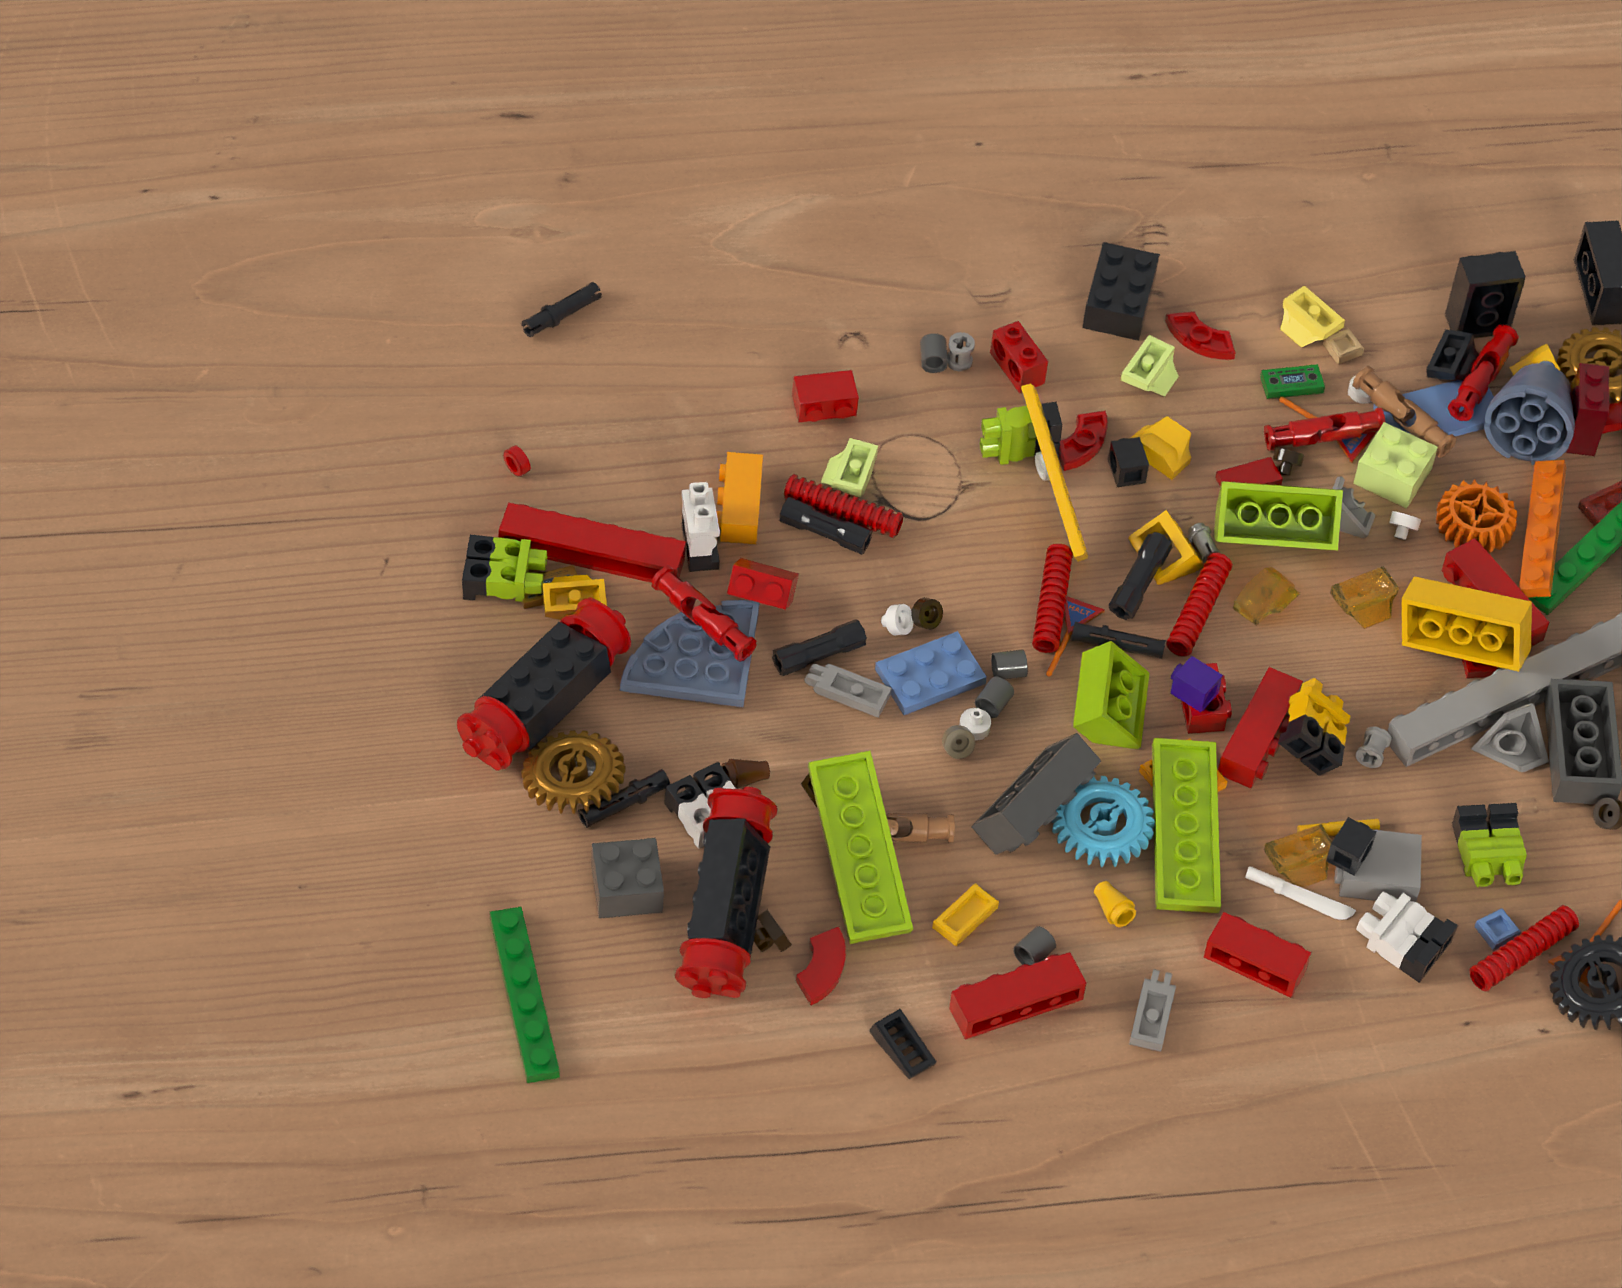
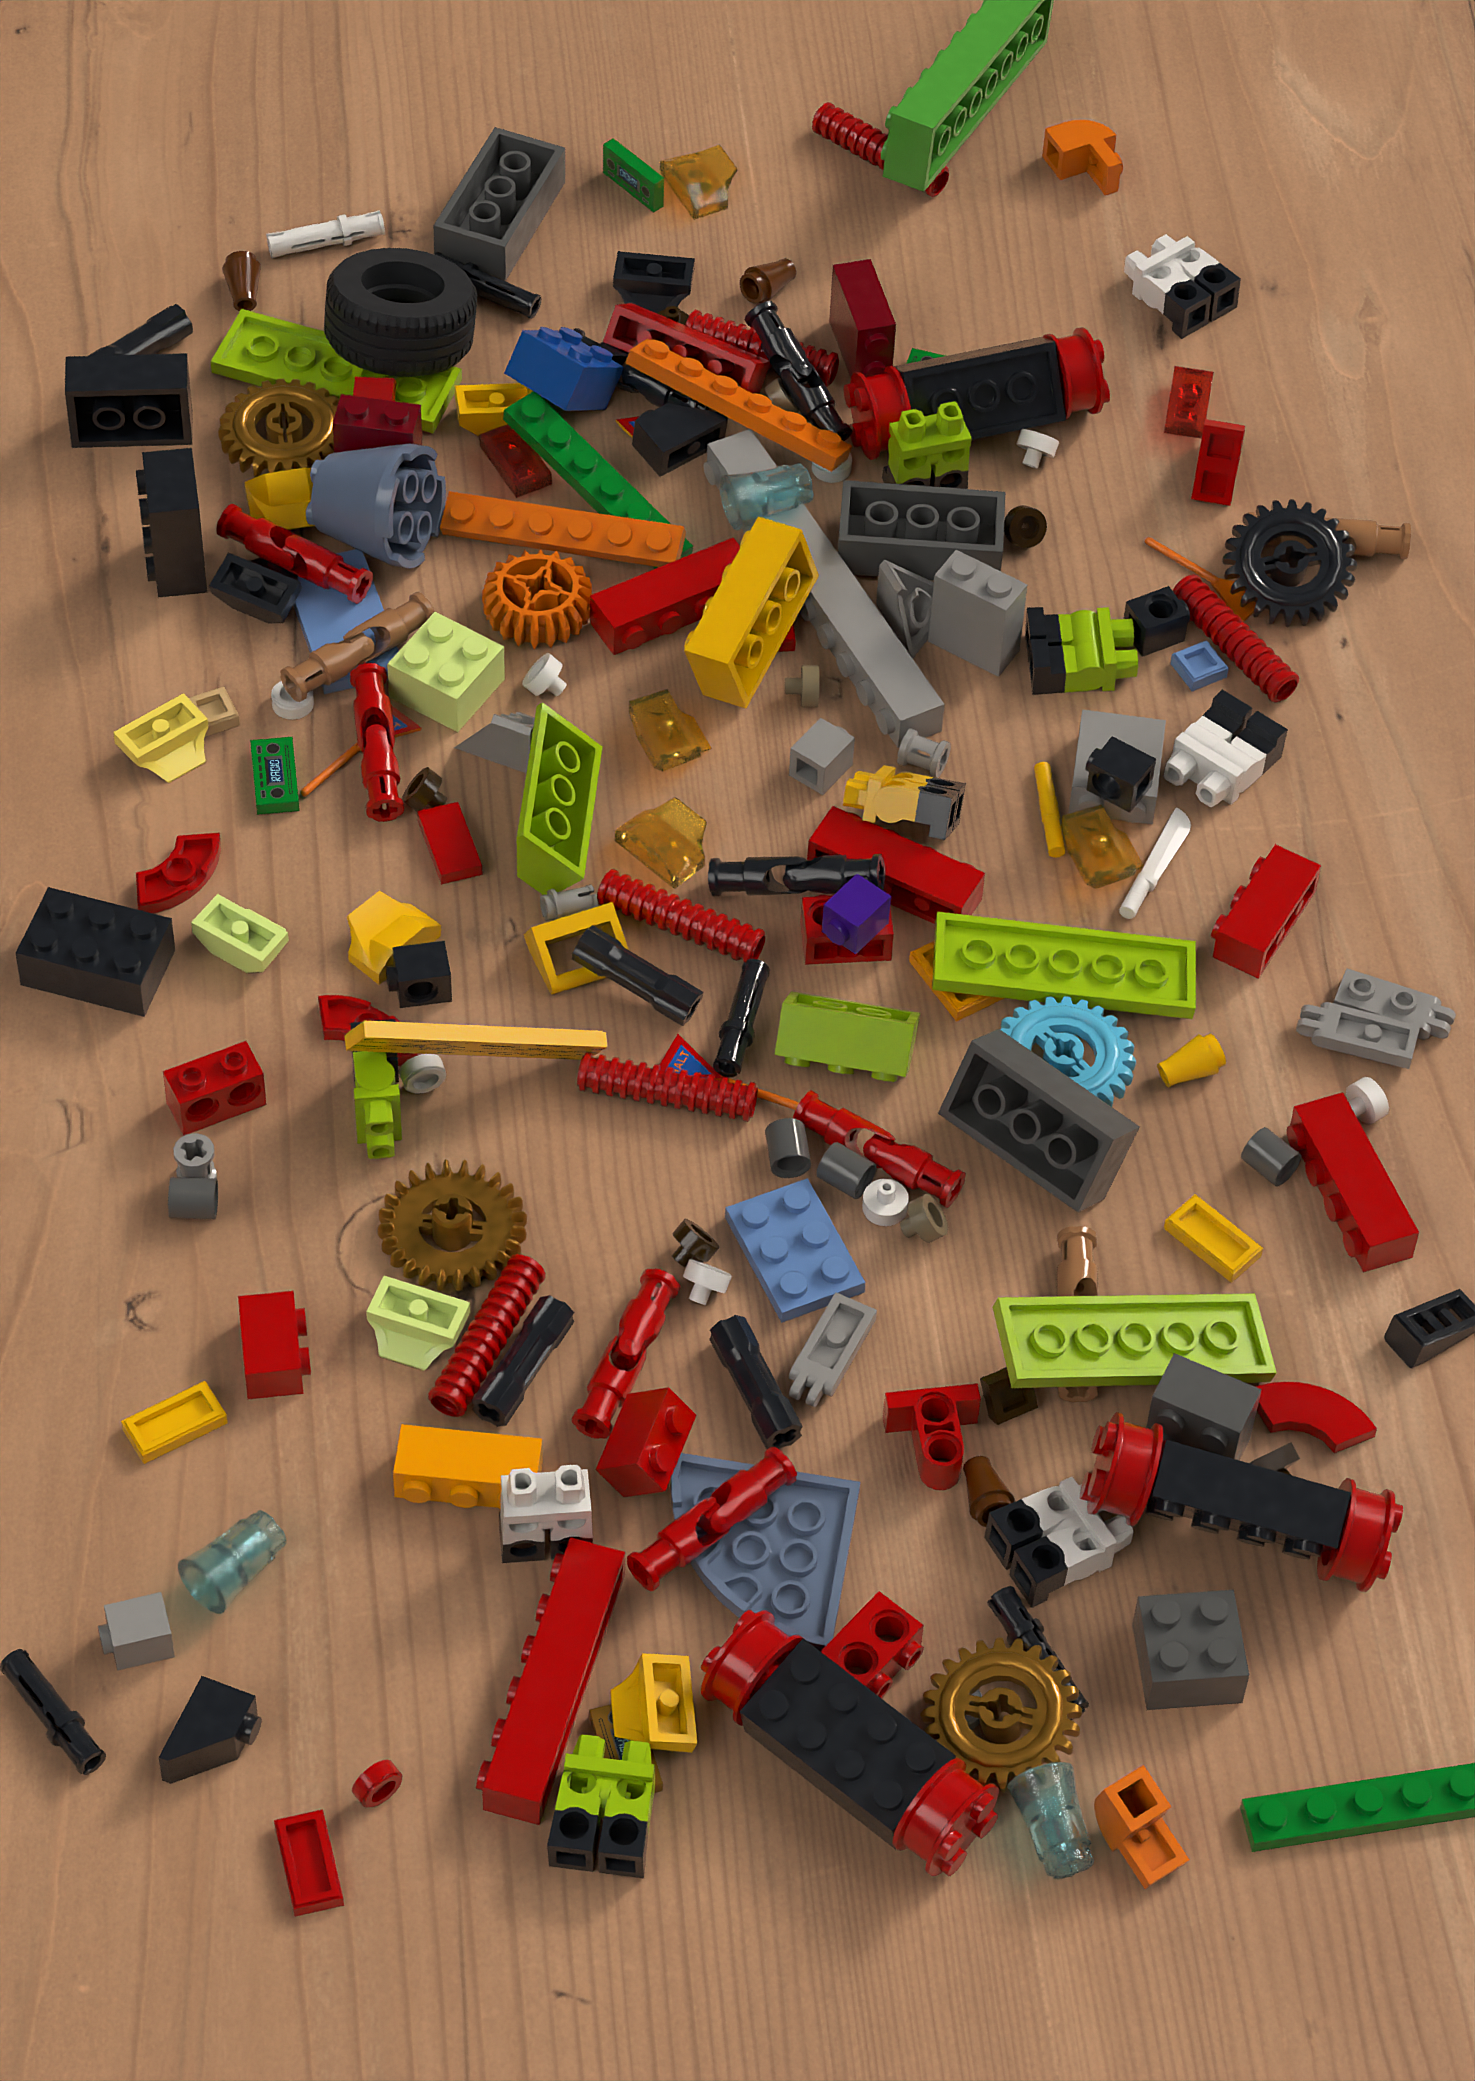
camera: 85 degrees left, 0 degrees up
(468, 436) = (308, 1863): none -> red tile
(500, 799) = (1054, 1818): none -> clear light blue plant
(500, 840) = (1133, 1823): none -> orange brick
(550, 379) = (209, 1730): none -> black slope
(615, 343) = (137, 1631): none -> light grey brick
(621, 702) = (861, 1647): none -> red brick
(665, 383) = (231, 1561): none -> clear light blue plant
(769, 357) = (174, 1422): none -> yellow tile
(781, 744) = (933, 1440): none -> red tile
(800, 882) = (1204, 1408): none -> dark grey brick
(849, 582) = (637, 1330): none -> red piece
(902, 471) = (451, 1224): none -> pearl gold gear
(1014, 716) = (901, 1161): none -> red piece
(1090, 1007) = (1367, 1100): none -> white tile
(1186, 1035) = (1395, 1001): none -> light grey hinge
(1238, 662) = (820, 875): none -> black piece
(1359, 684) = (821, 756): none -> light grey brick
(1424, 677) = (806, 686): none -> dark tan tile
(1500, 764) = (977, 612): none -> light grey brick
(1529, 885) = (1157, 620): none -> black brick
(1584, 629) = (764, 493): none -> clear light blue plant

